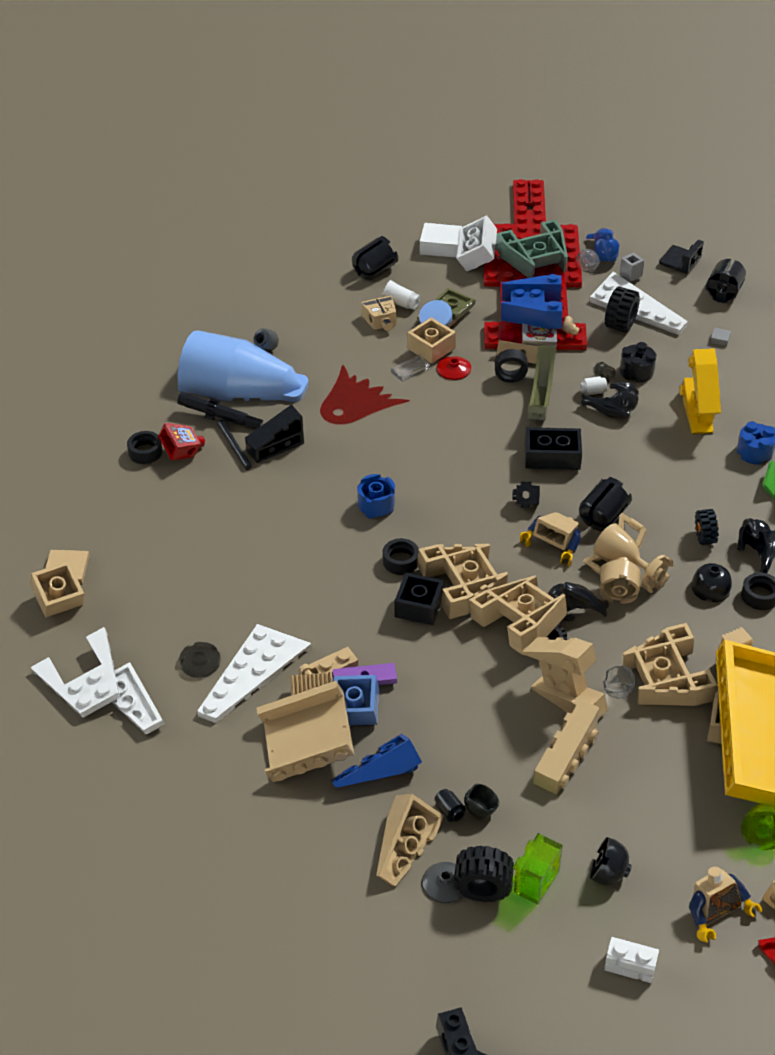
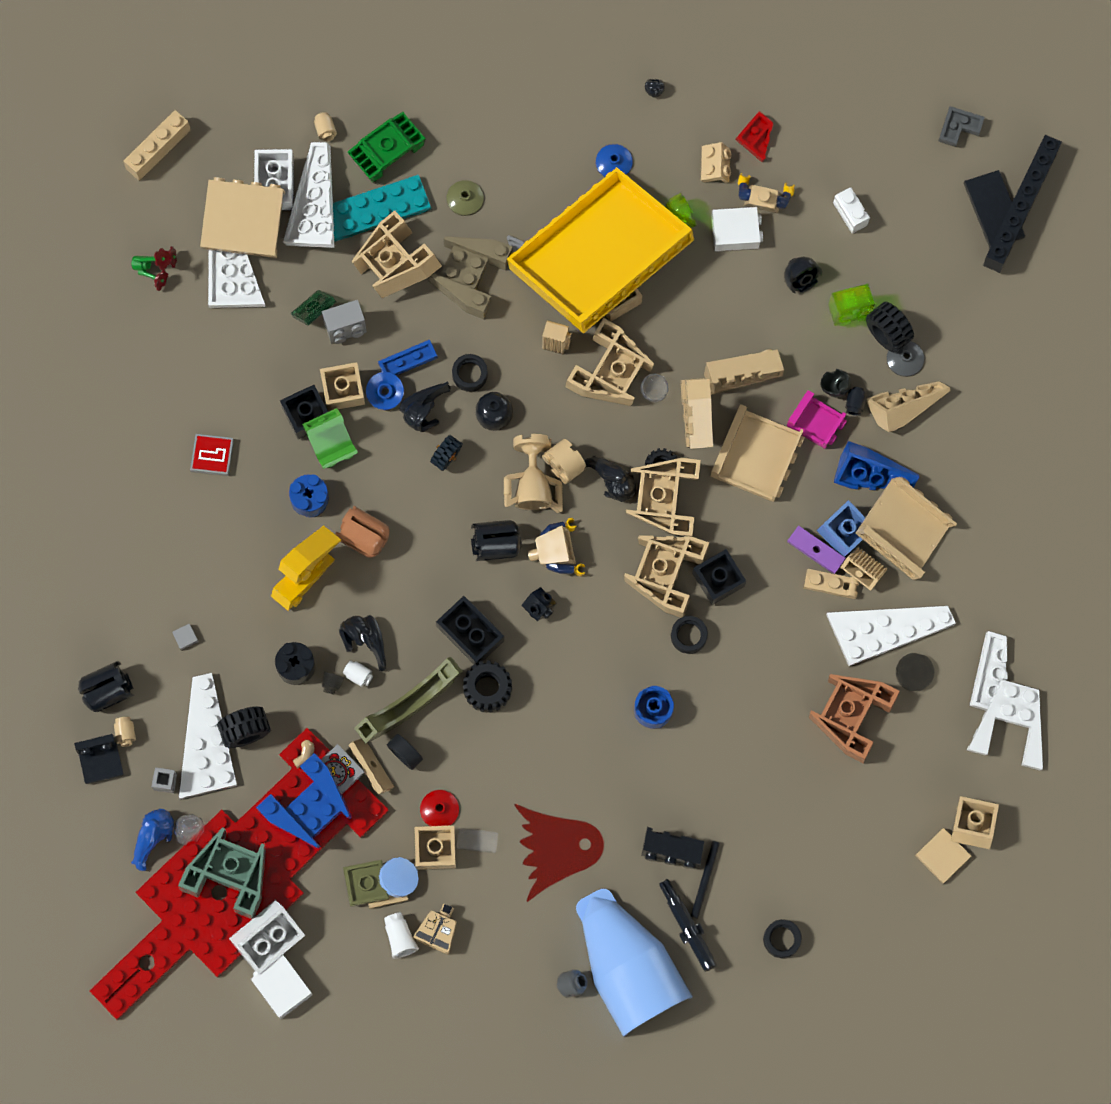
camera: 140 degrees left, 30 degrees up
(180, 441) = (753, 909): red torso -> none
(229, 592) = (848, 709): none -> nougat wedge
(374, 258) = (375, 1018): black cylinder -> none
(466, 766) = (816, 420): none -> dark pink panel
(487, 707) = (757, 454): none -> tan panel
(503, 431) = (487, 702): none -> black tyre
(686, 274) = (124, 731): none -> tan brick
(694, 445) = (363, 532): none -> nougat cylinder
(704, 850) = (736, 229): none -> white brick

